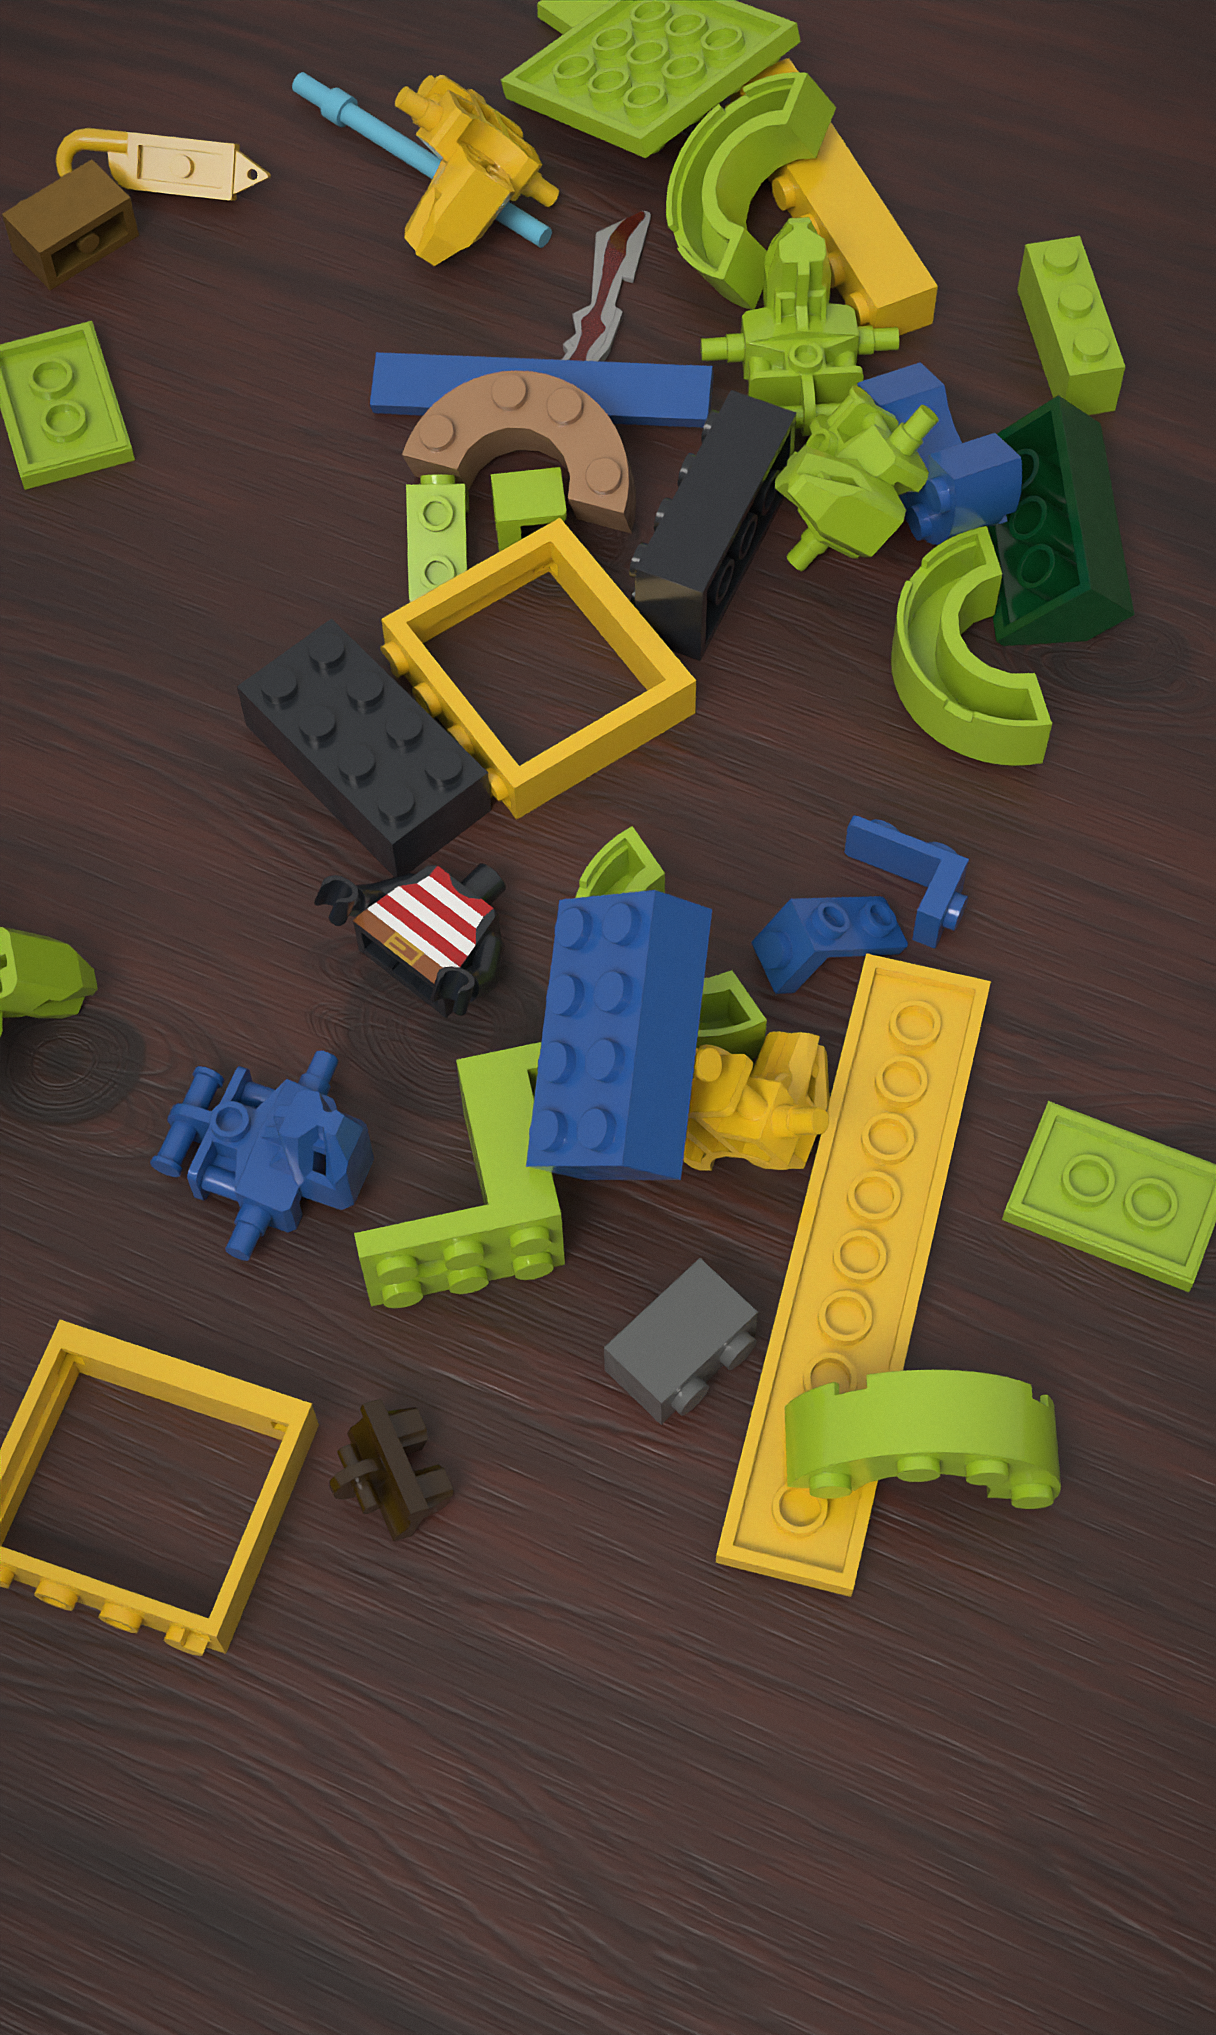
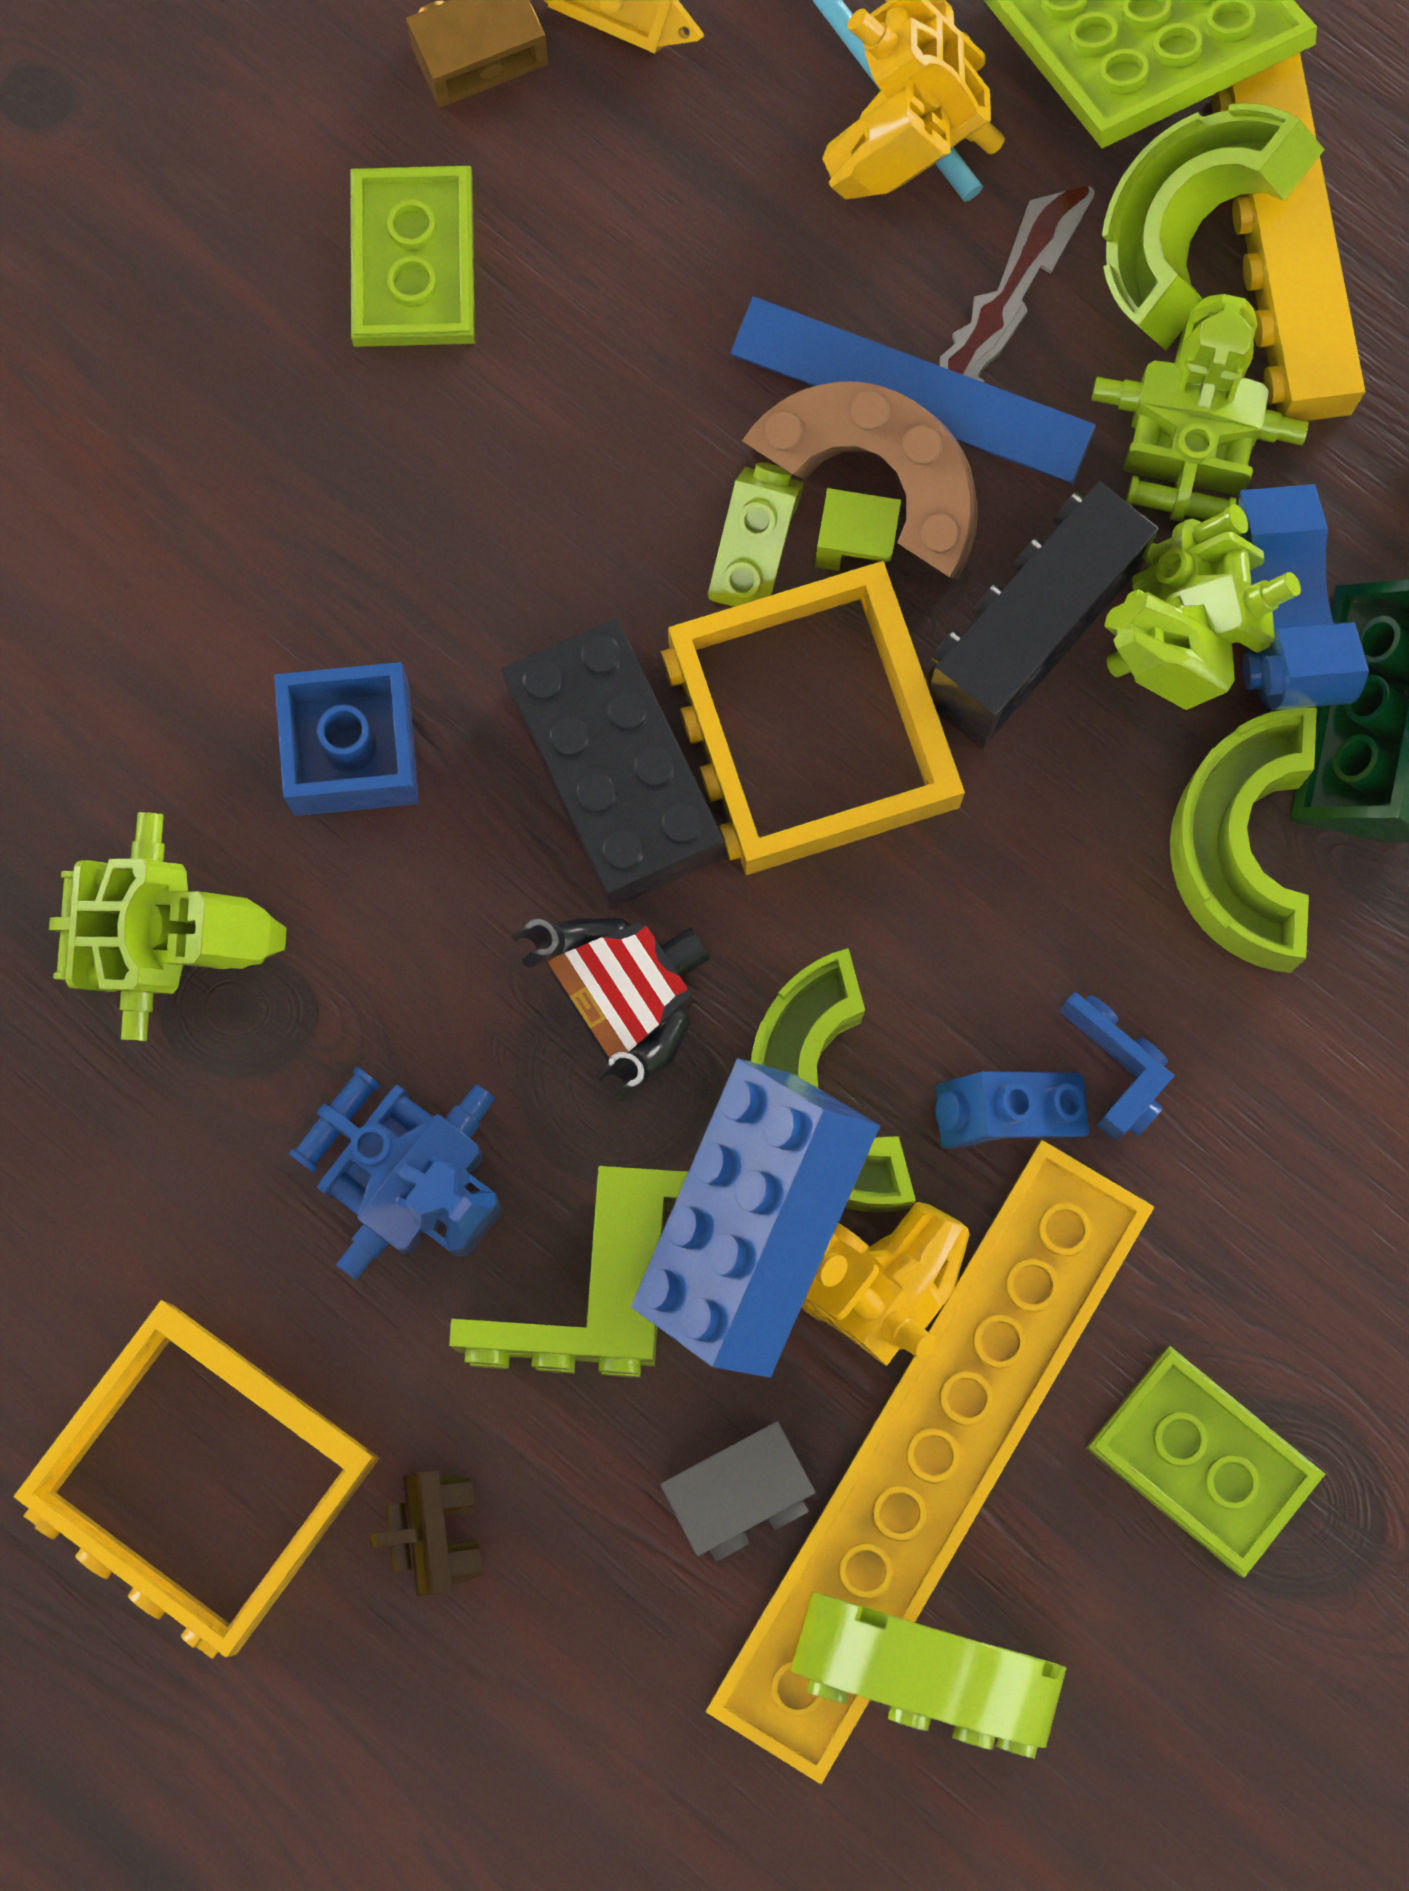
camera: 15 degrees right, 15 degrees up
(108, 789) = (346, 739): none -> blue brick

